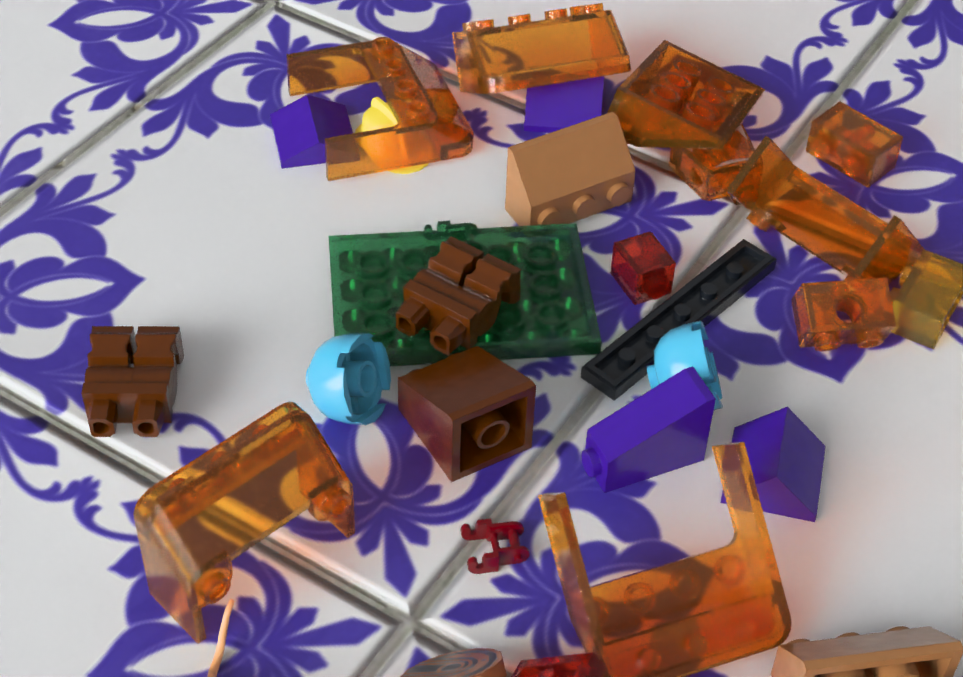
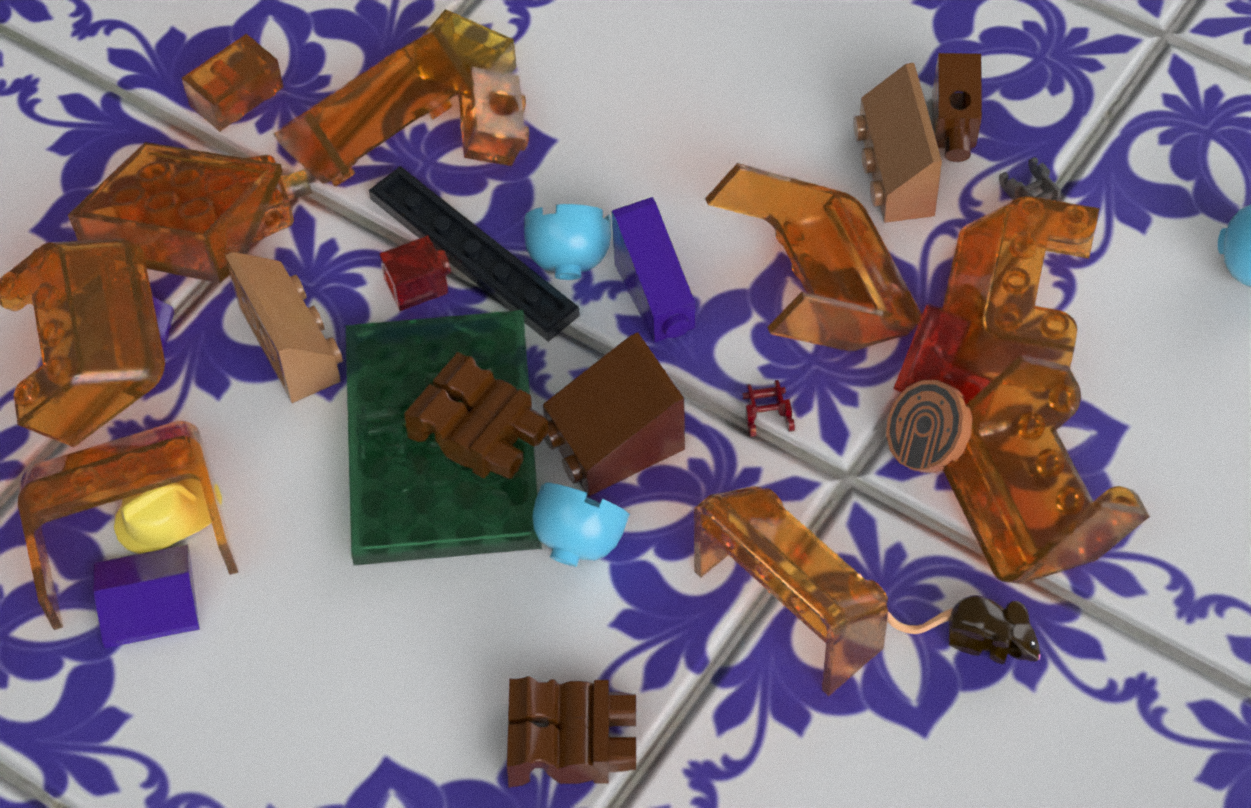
camera: 85 degrees left, 10 degrees up
(784, 463) = (677, 192): dark purple slope -> none

